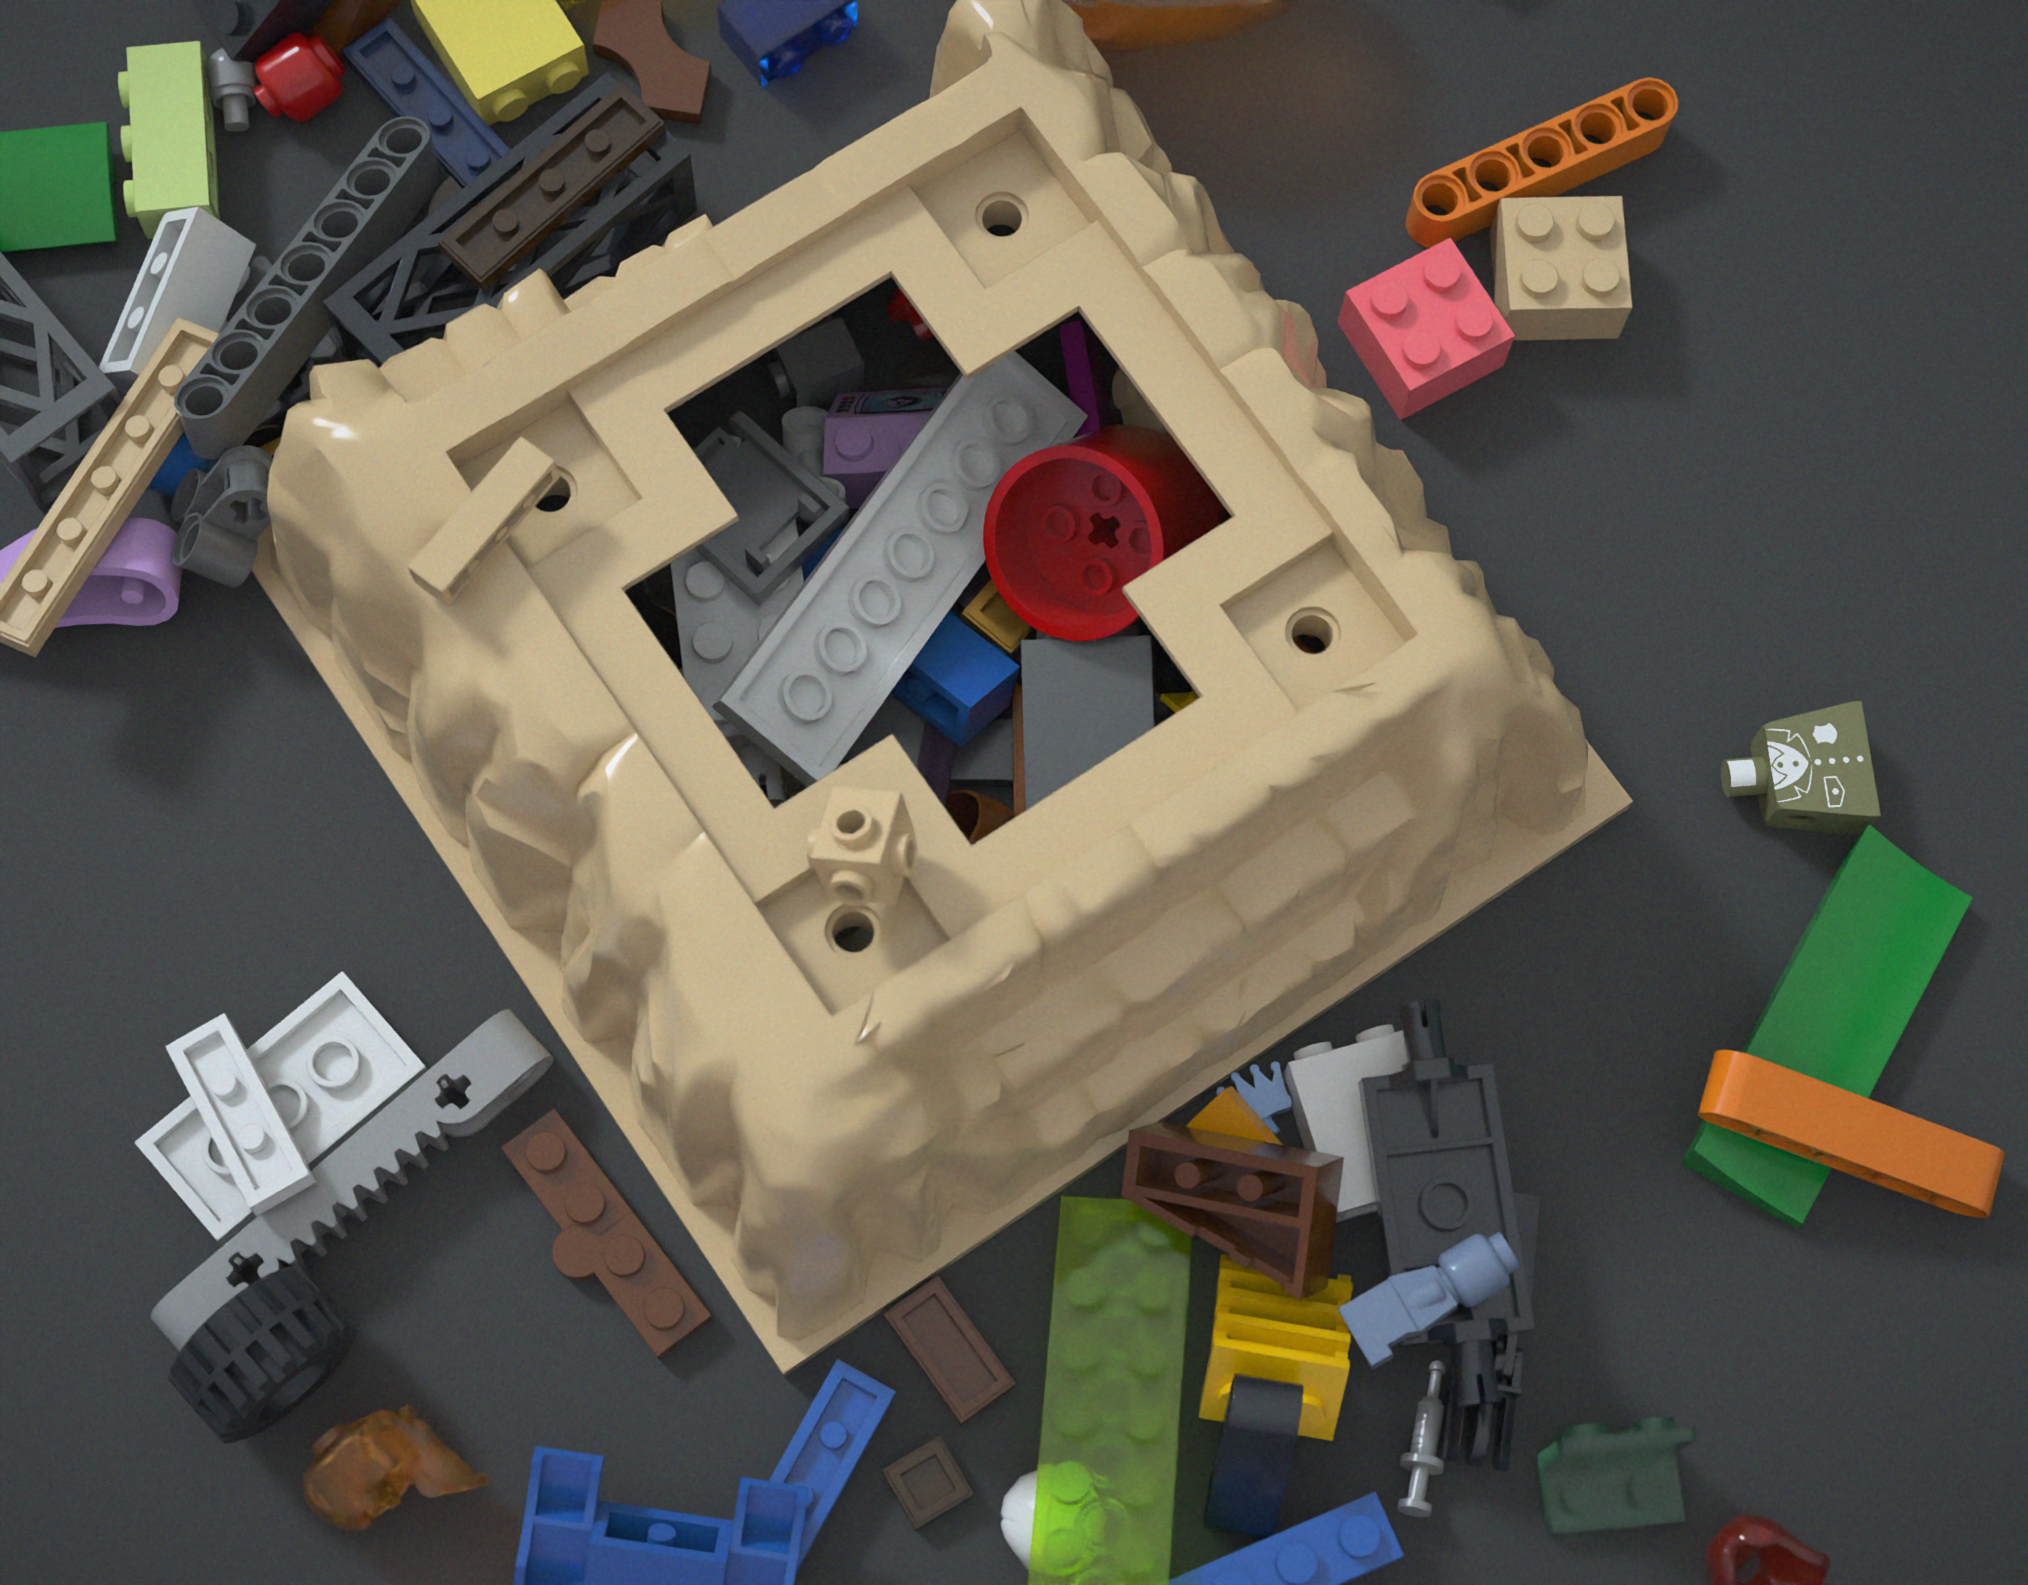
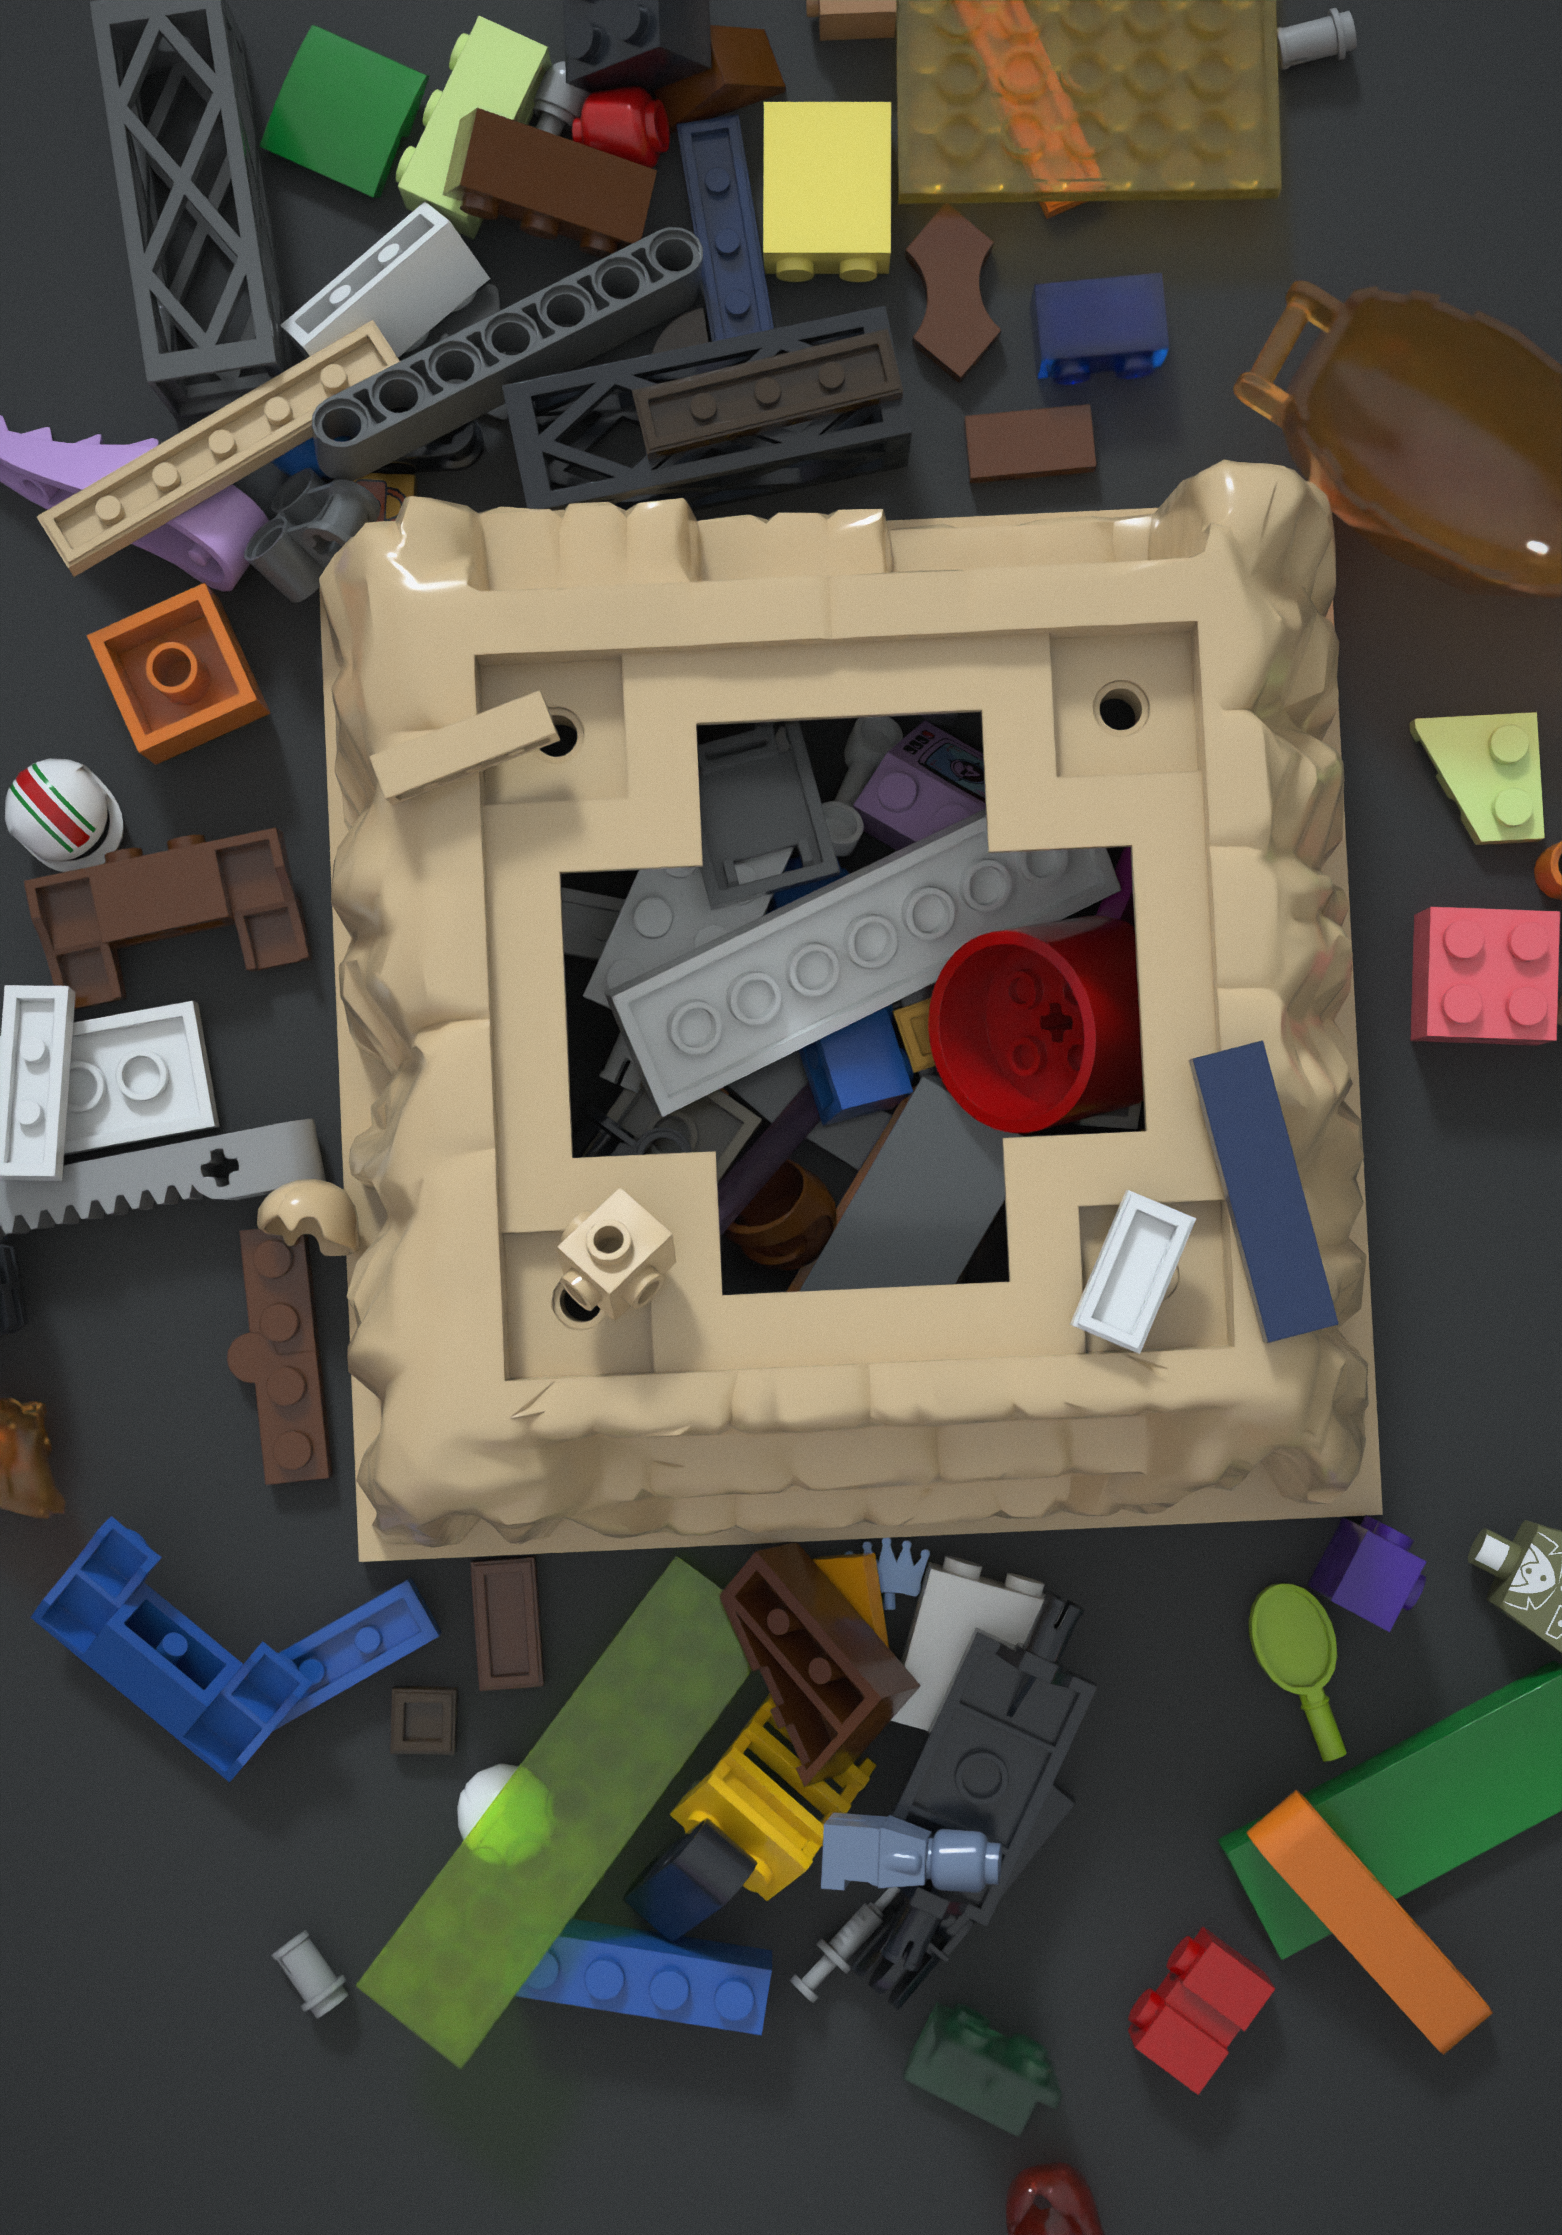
camera: 45 degrees right, 15 degrees up
(131, 877) = (61, 812): none -> white helmet
(171, 702) = (178, 674): none -> orange brick
(262, 140) = (548, 183): none -> reddish brown brick
(267, 895) = (166, 895): none -> reddish brown bracket
(561, 1081) = (312, 1209): none -> tan hair
(788, 135) = (1029, 443): none -> reddish brown tile
(1297, 619) = (1133, 1271): none -> white tile
(1323, 179) = (1489, 772): none -> yellowish green wing
(1360, 496) = (1263, 1192): none -> dark blue tile
(1643, 959) = (1298, 1654): none -> lime piece
(1653, 843) = (1370, 1571): none -> dark purple brick
(1760, 1307) = (1198, 2008): none -> red brick

